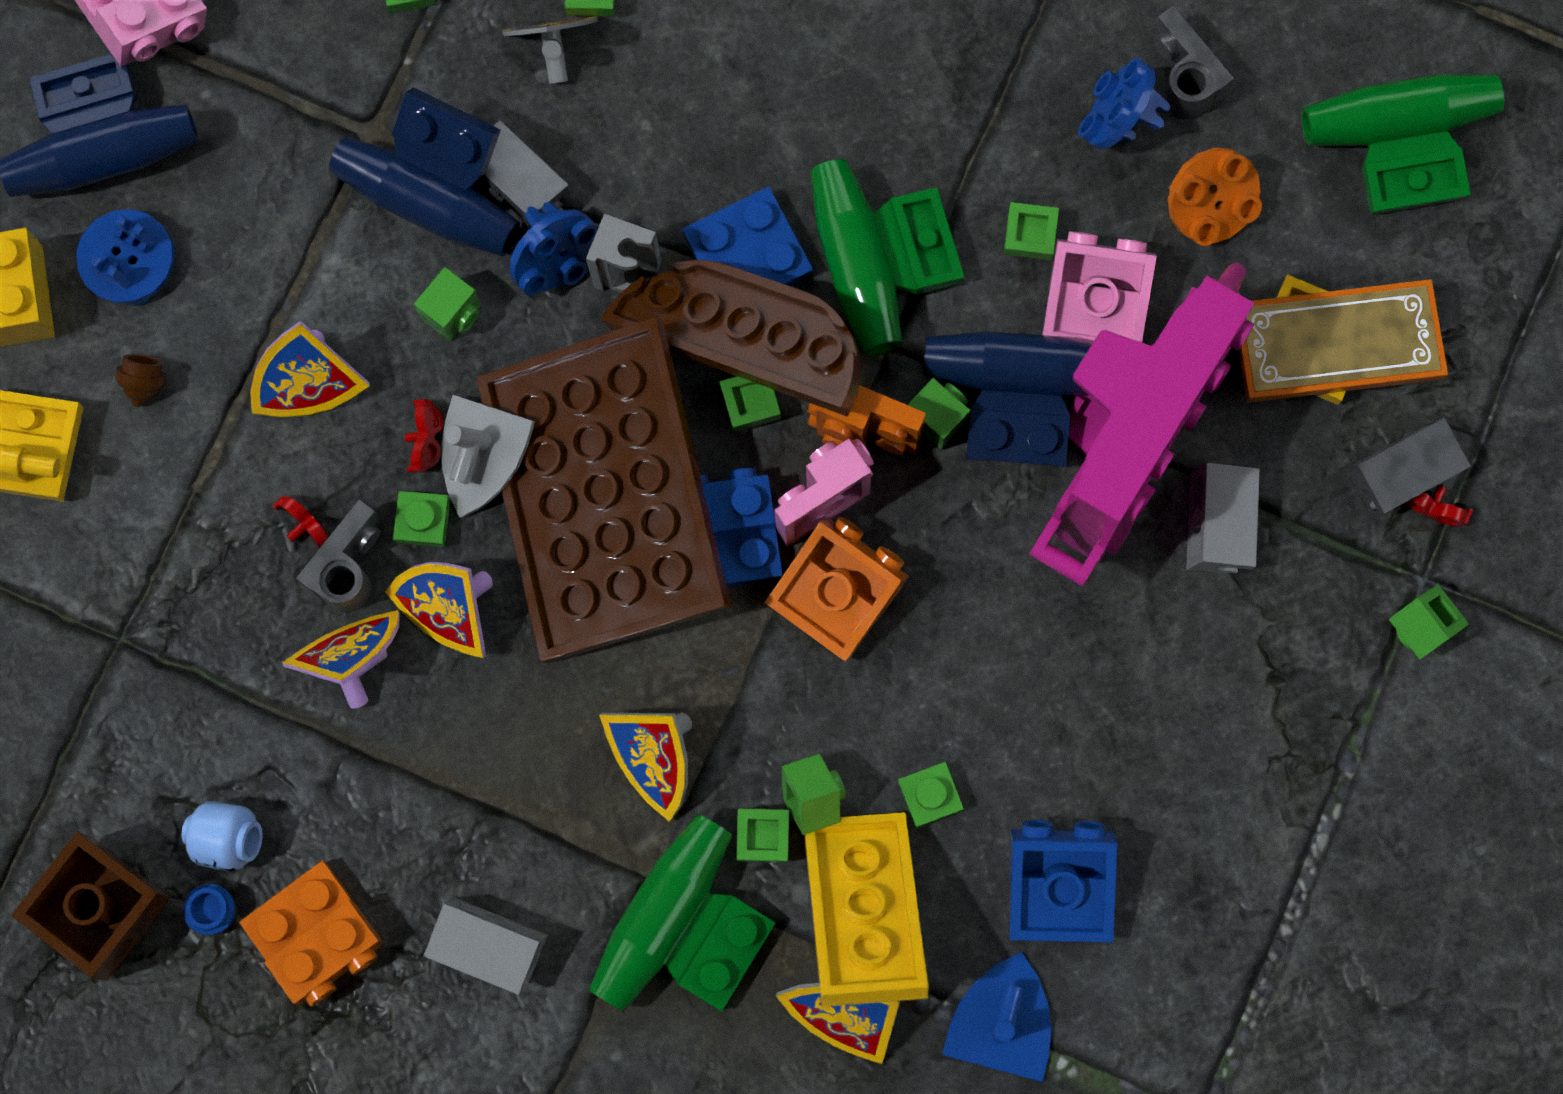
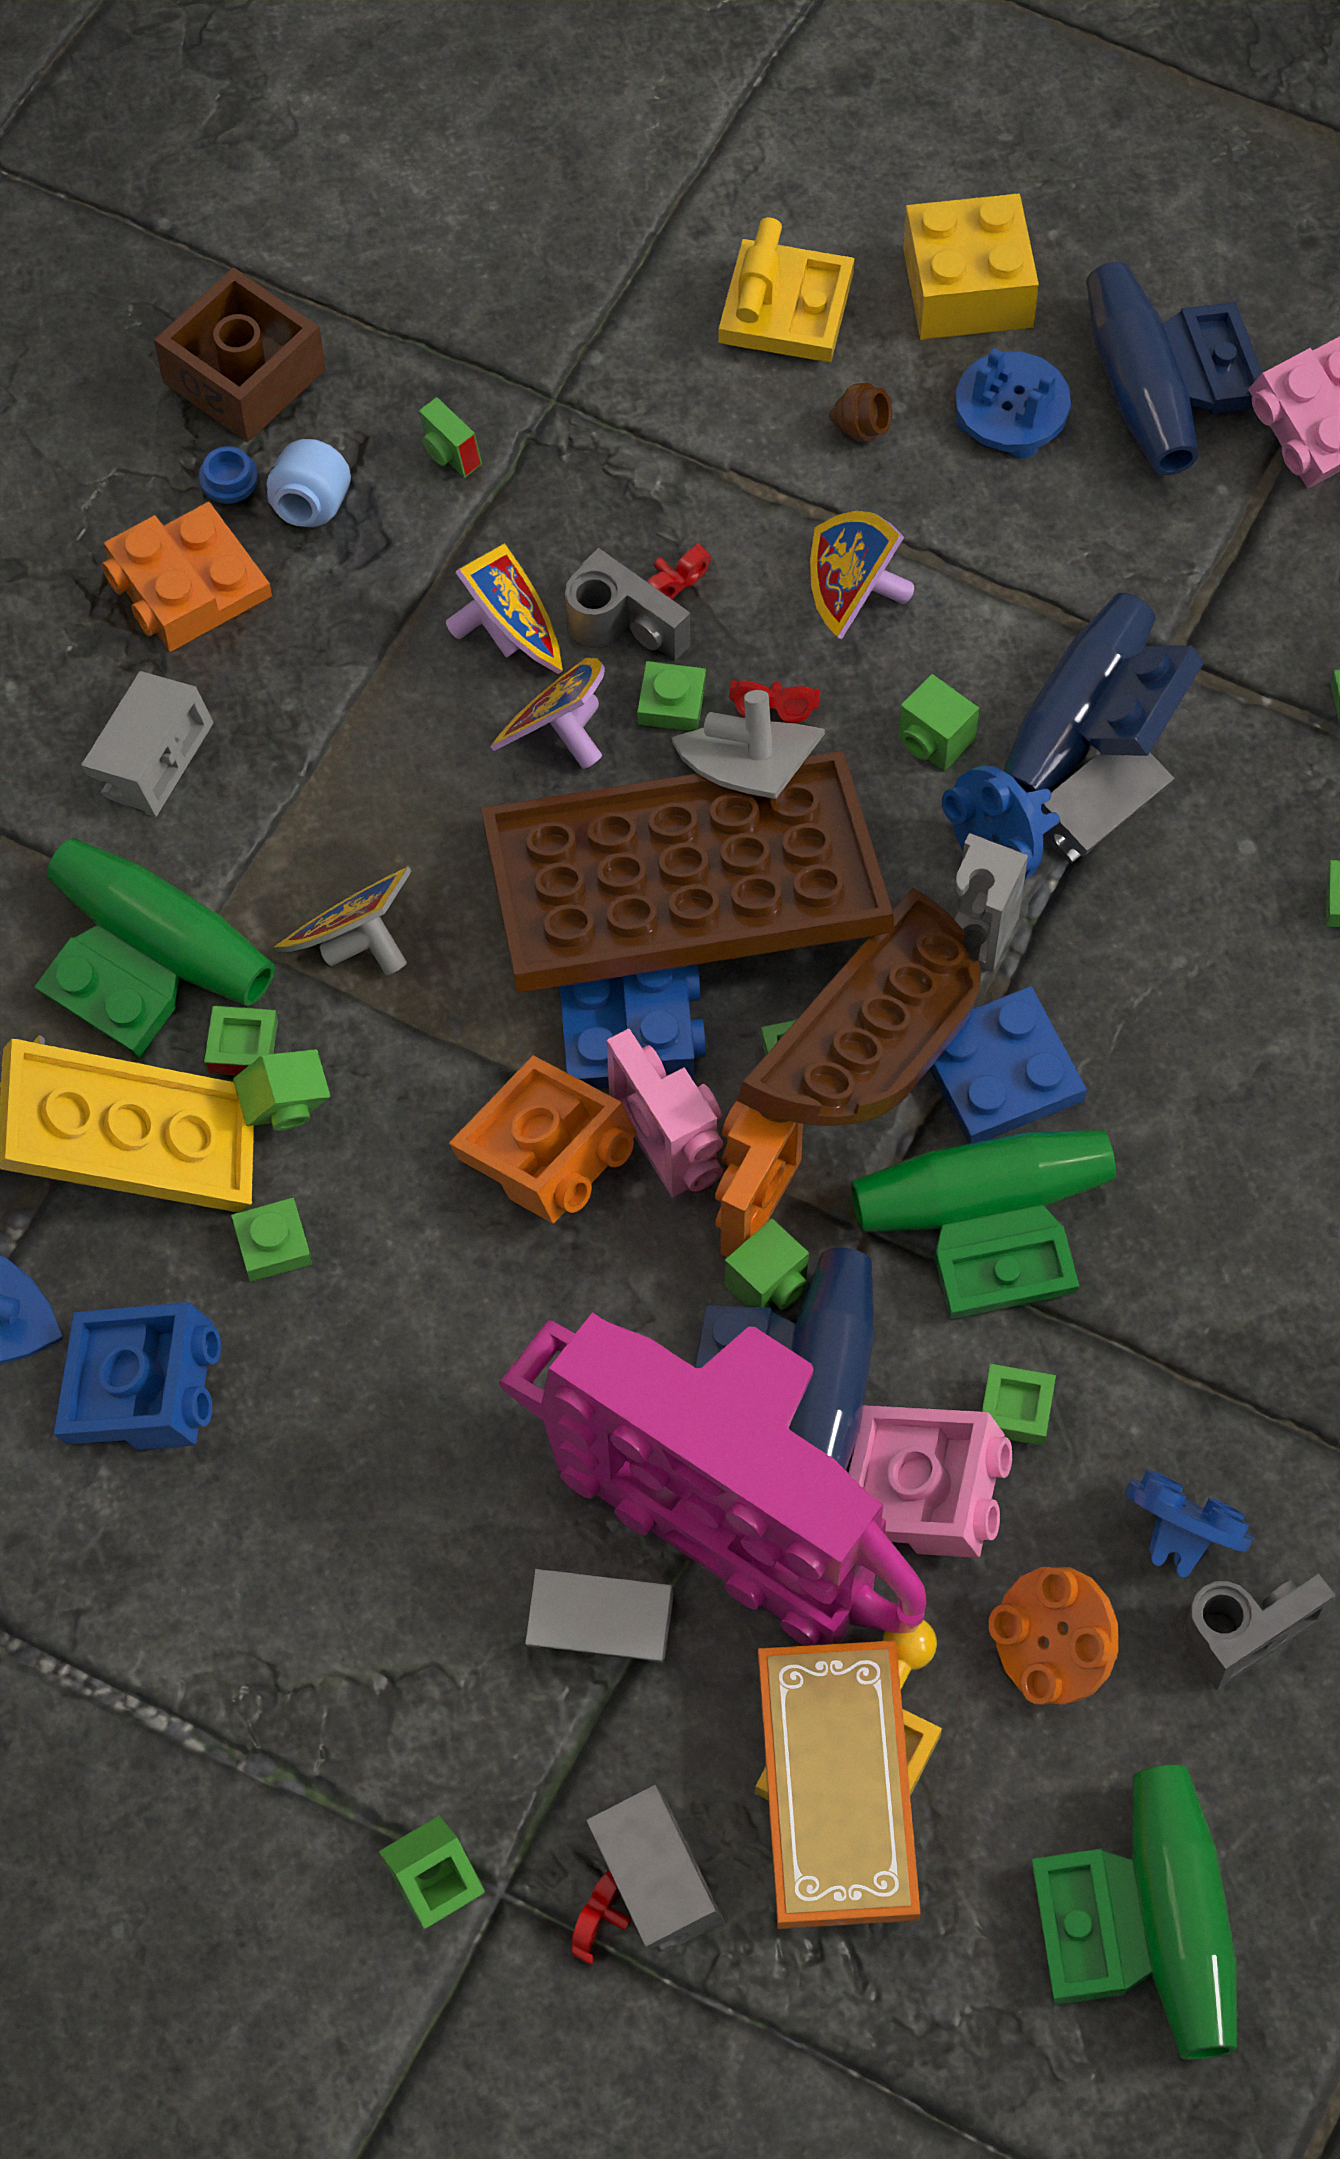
camera: 90 degrees right, 15 degrees down
(173, 720) = (449, 438): none -> bright green plate
(552, 43) = (1296, 841): light grey shield -> none

